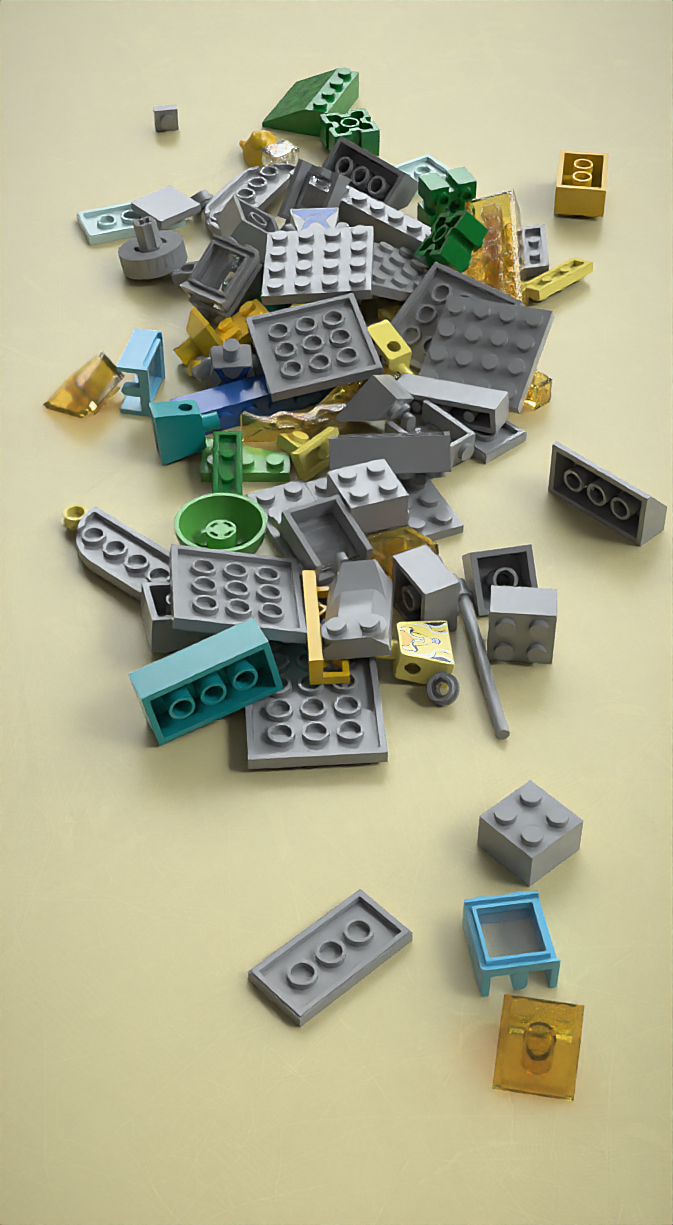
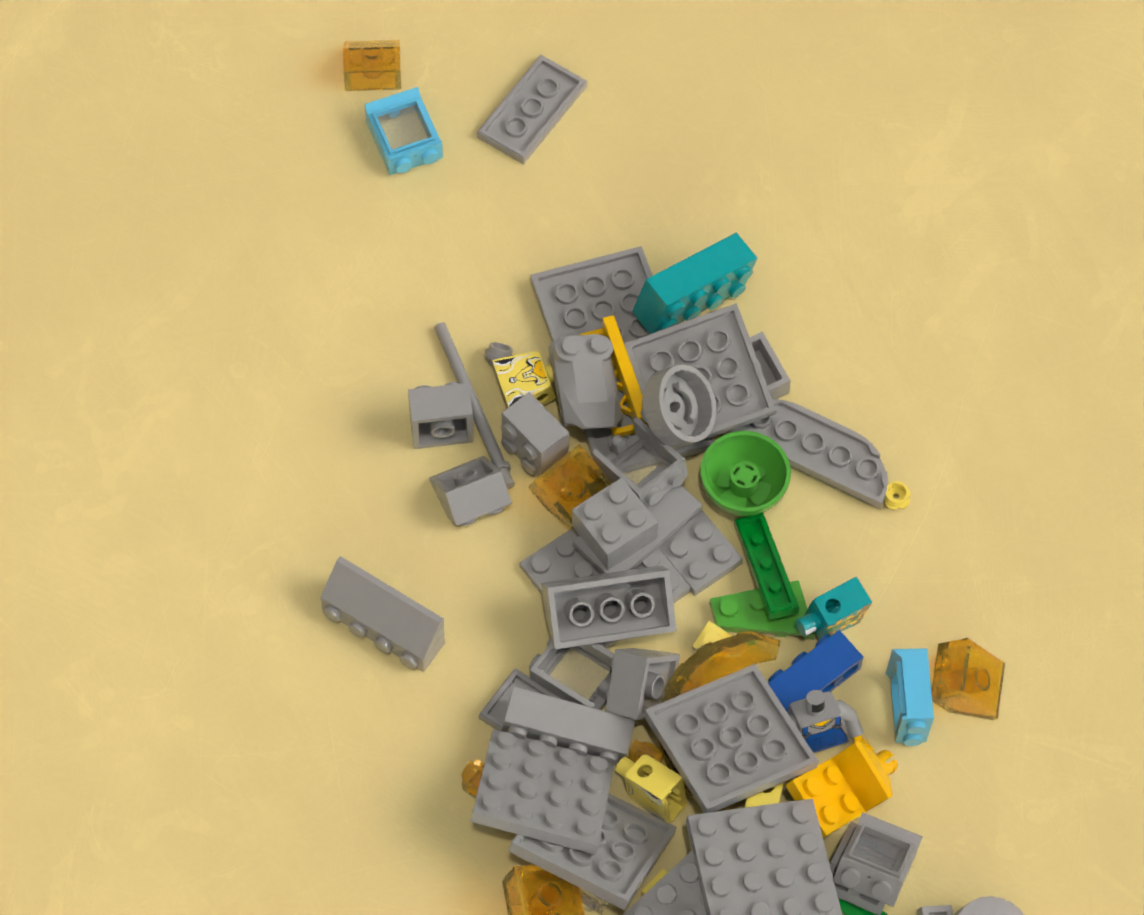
camera: 165 degrees right, 20 degrees up
(277, 541) = (666, 409): none -> light grey piece
(313, 455) = (694, 618): light yellow plate -> none
(529, 833) = (402, 221): light grey brick -> none

